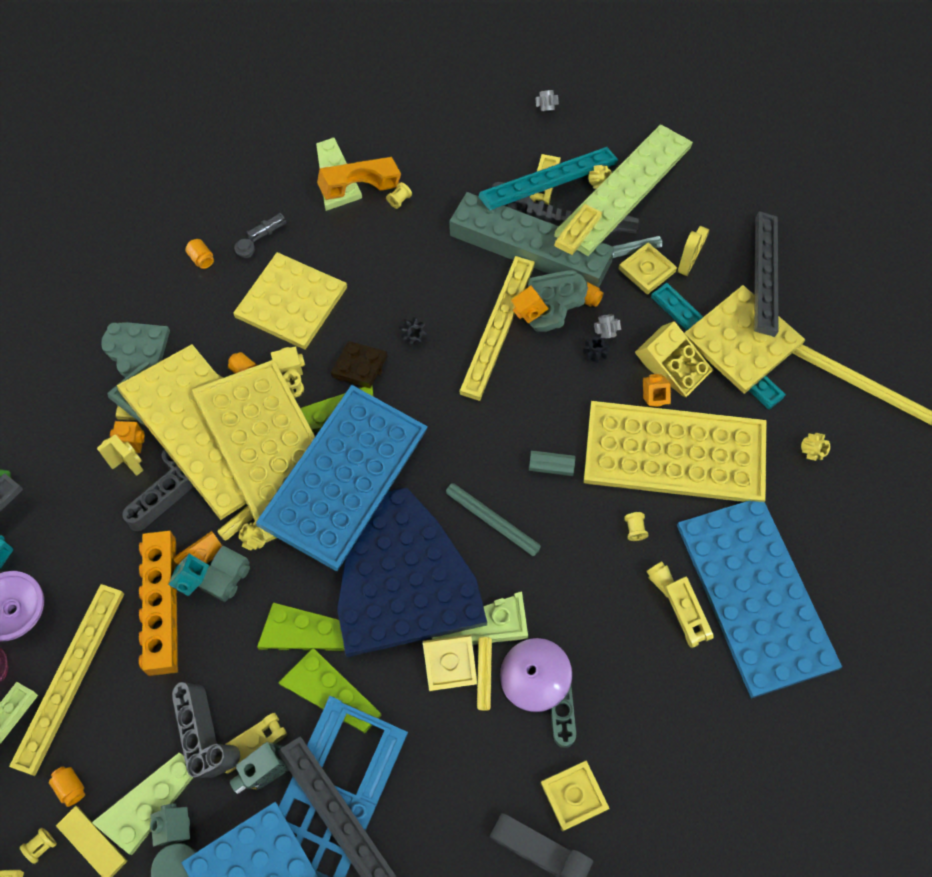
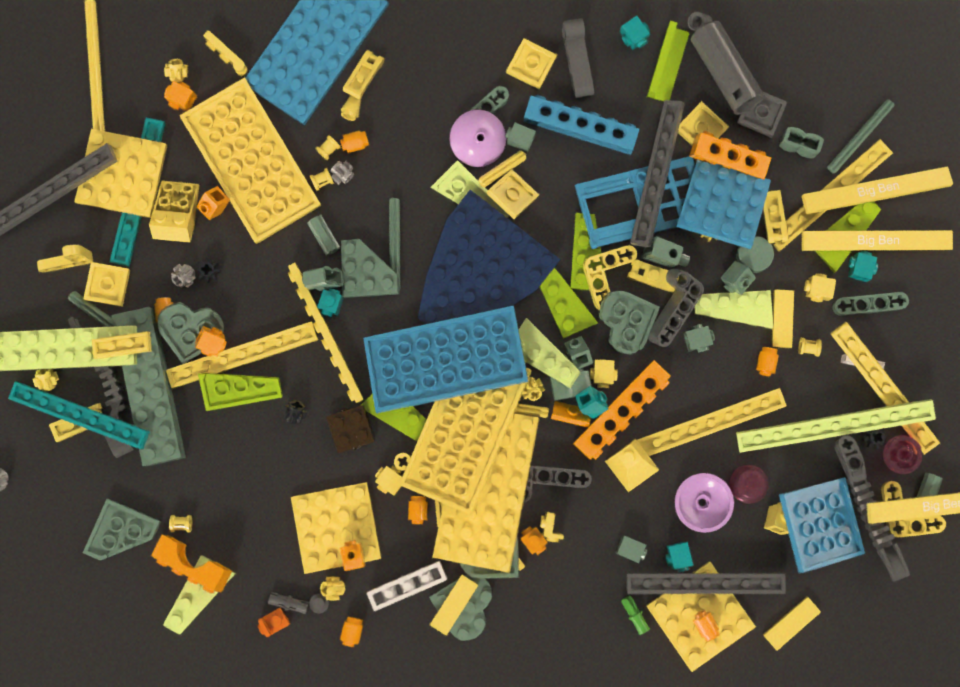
camera: 125 degrees left, 20 degrees up
(38, 512) = (631, 549): none -> sand green brick
(104, 571) = (632, 465): none -> light yellow slope
(141, 336) = (454, 604): none -> light yellow tile
(152, 733) = (699, 338): none -> sand green brick
(191, 312) = (407, 585): none -> white brick
(207, 612) = (603, 373): none -> light yellow brick
(232, 675) = (628, 319): none -> sand green plate
(244, 261) = (332, 588): none -> light yellow gear
(245, 601) = (578, 352): none -> sand green brick
(251, 285) = (352, 563): none -> light orange brick
(262, 207) = (273, 622): none -> orange bracket
(271, 567) = (545, 356): none -> yellowish green wing
(302, 685) = (599, 271): none -> light yellow beam
(432, 154) = (119, 530): none -> sand green plate
(459, 402) = (328, 341): none -> light yellow plate
(471, 300) = (233, 390): none -> lime wing
(483, 423) = (330, 302): none -> teal brick
(487, 473) = (365, 272): none -> sand green plate
(503, 718) = (520, 137): none -> sand green brick
(508, 427) = (322, 278): none -> sand green brick
(515, 751) = (587, 133): none -> dark azure brick
(600, 520) = (342, 172): none -> light grey gear
(608, 498) = (321, 179): none -> light yellow bush
(623, 554) = (354, 141): none -> light orange brick
(786, 434) = (180, 96): none -> light orange brick
(803, 502) = (225, 53): none -> light yellow plate

